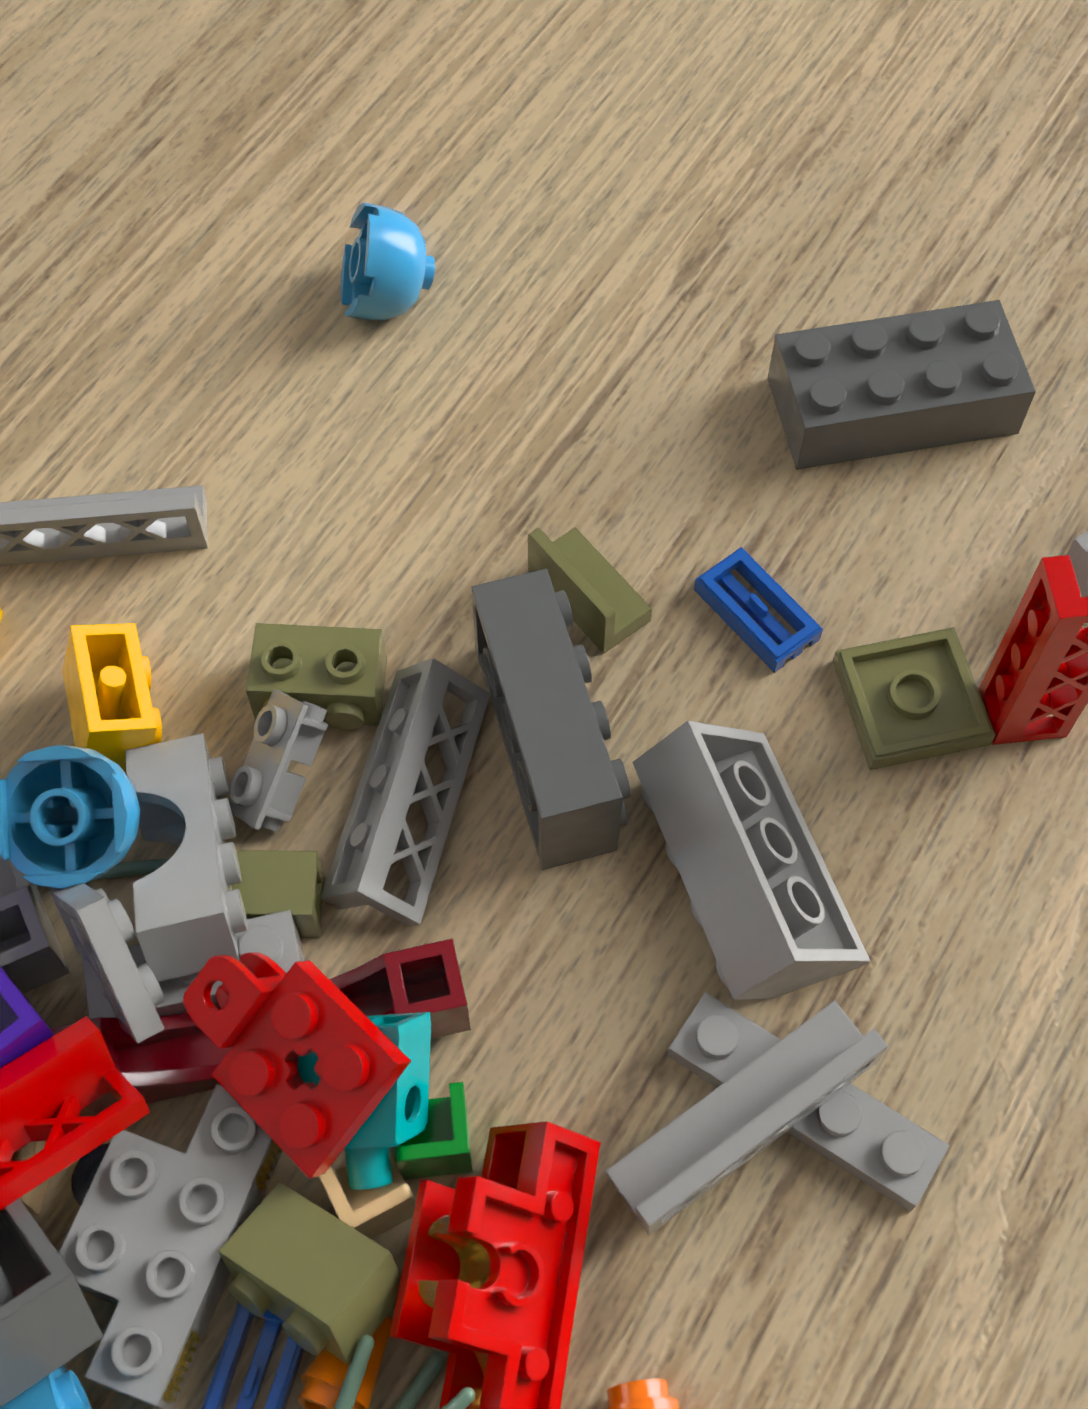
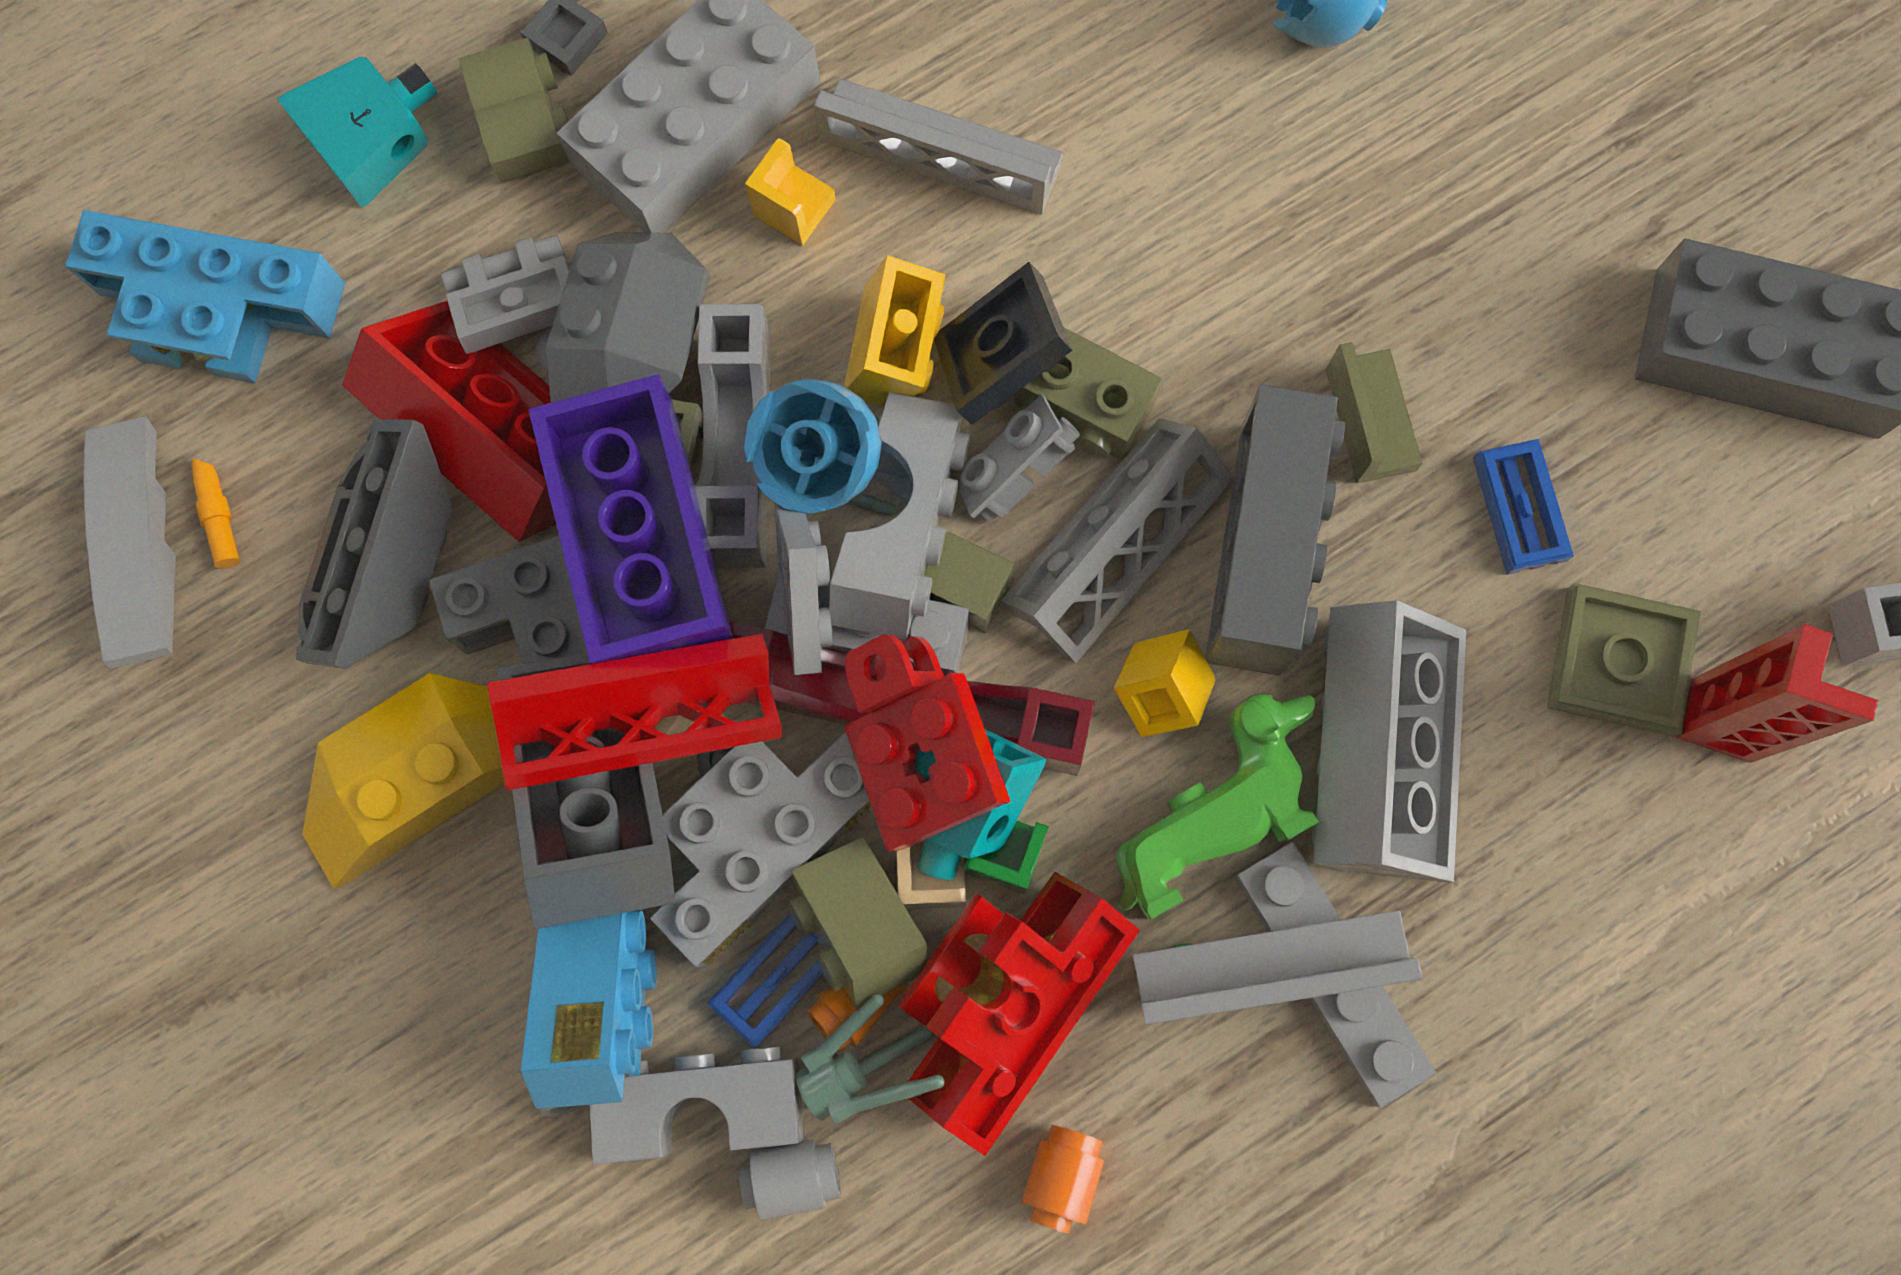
camera: 30 degrees right, 15 degrees up
(216, 662) = (1001, 343): none -> black plate
(514, 902) = (1165, 683): none -> yellow panel
(629, 999) = (1229, 817): none -> bright green animal

